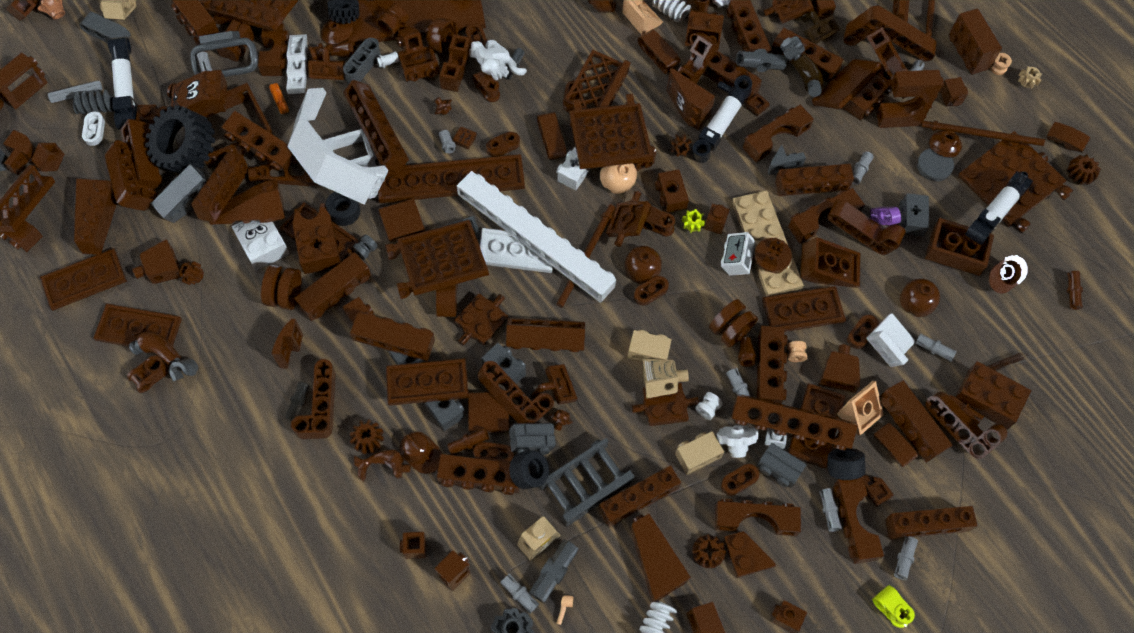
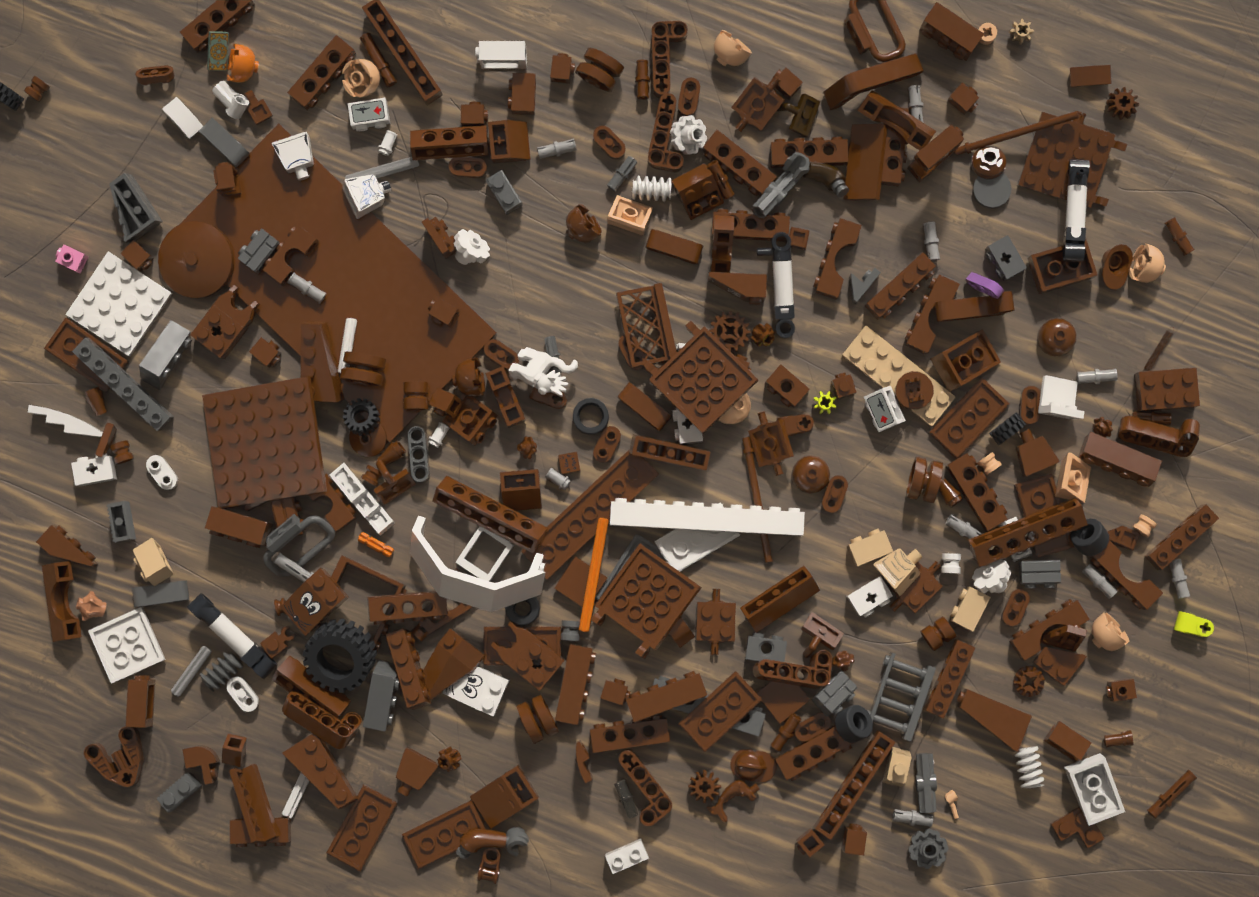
camera: 30 degrees left, 20 degrees up
(52, 44) = (126, 645): none -> white plate
(57, 224) = (295, 796): none -> white axle
(208, 329) = (504, 796): none -> reddish brown slope
(257, 445) = (626, 856): none -> white brick
(365, 371) = (600, 743): none -> reddish brown brick
(414, 127) = (521, 489): none -> reddish brown slope
(414, 218) = (593, 574): none -> orange axle
(490, 524) = (854, 784): none -> reddish brown brick
(506, 105) = (576, 418): none -> black tyre
(544, 171) = (669, 452): none -> reddish brown brick
(629, 379) = (859, 597): none -> white brick
(657, 452) = (938, 633): none -> reddish brown wheel
(659, 127) = (738, 341): none -> reddish brown gear
(728, 19) = (726, 190): none -> reddish brown pin
(767, 532) = (1065, 637): none -> reddish brown wing
(808, 557) = (1108, 634): none -> light nougat cylinder
(831, 332) = (1007, 428): none -> black tyre
(896, 445) = (1116, 489): reddish brown slope -> none
(902, 491) = (1144, 525): none -> light nougat wheel
(917, 386) = (1102, 427): none -> reddish brown plant
(1035, 290) = (1148, 264): none -> light nougat cylinder

